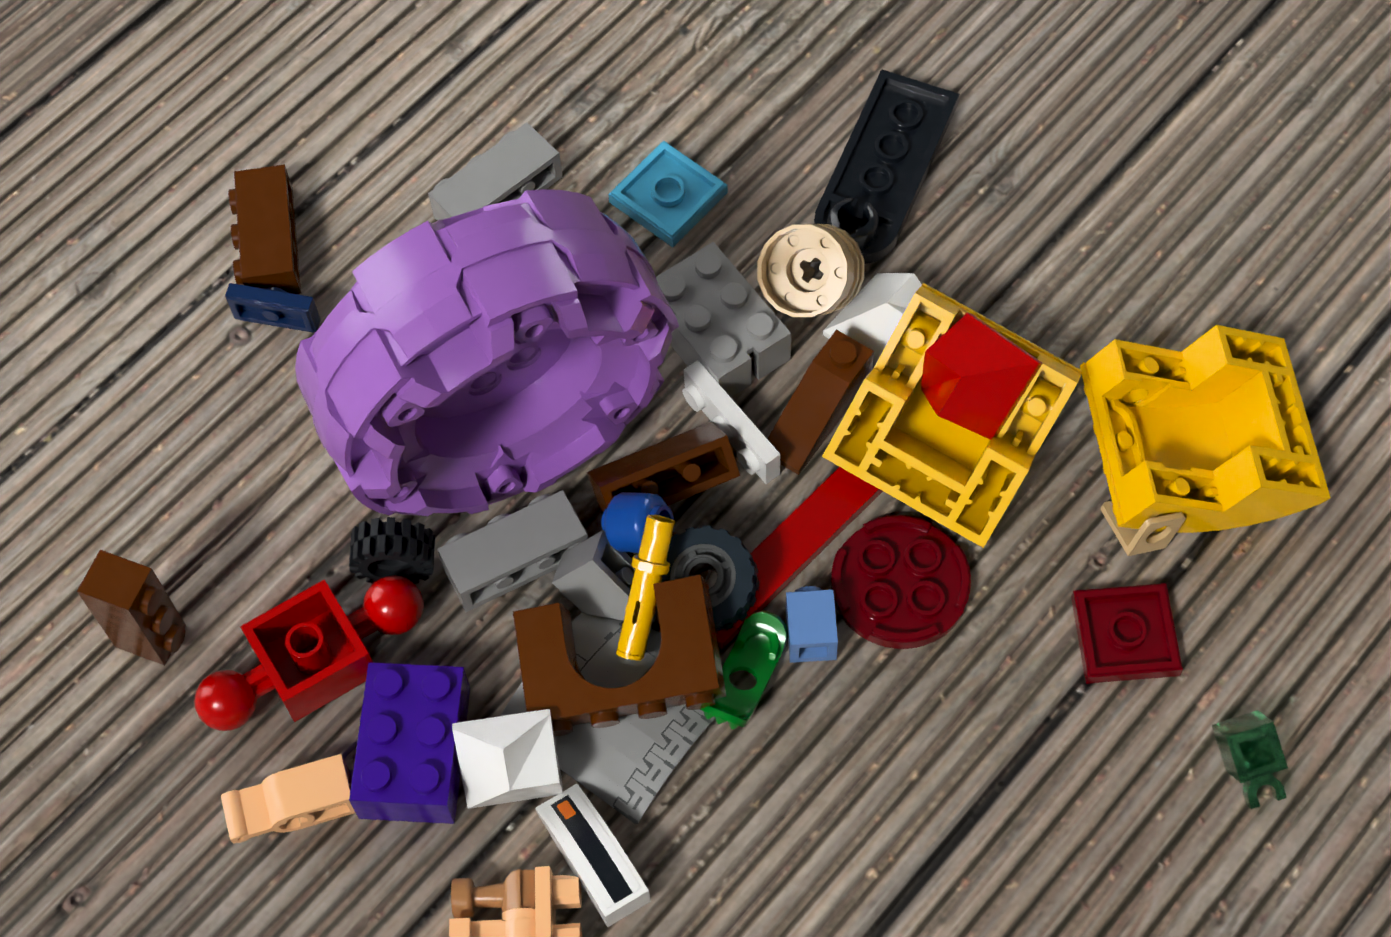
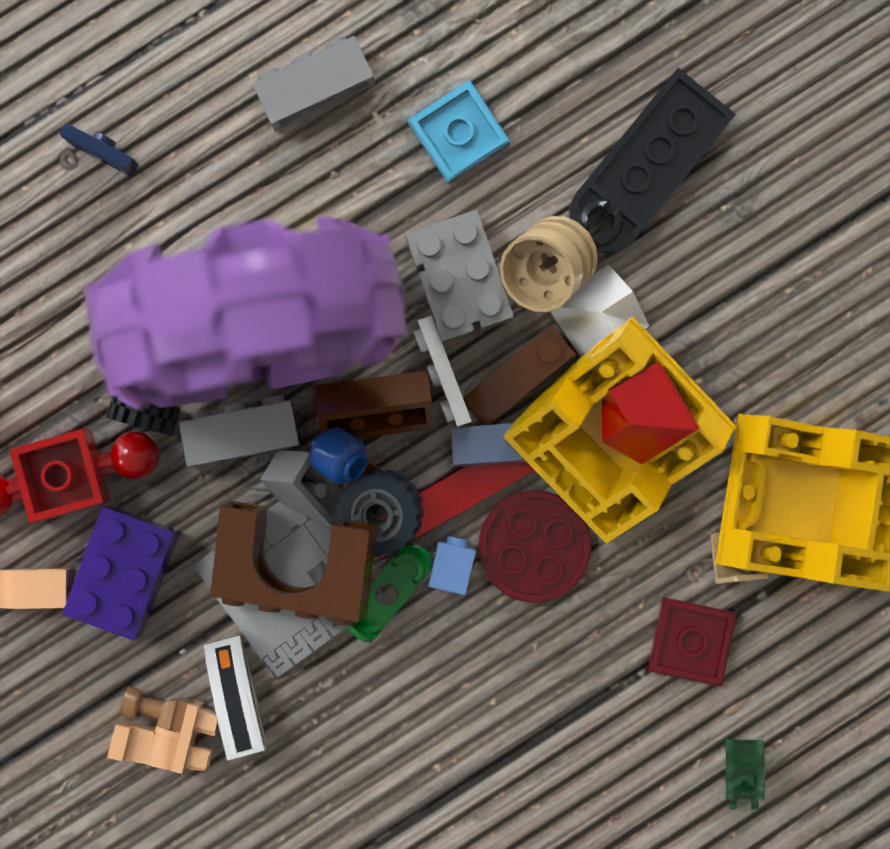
camera: 15 degrees right, 25 degrees up
(265, 229) = (108, 71): reddish brown brick -> none
(508, 758) = (191, 617): white slope -> none
(649, 569) = (334, 504): yellow pin -> none
(805, 483) = (482, 446): none -> sand blue tile

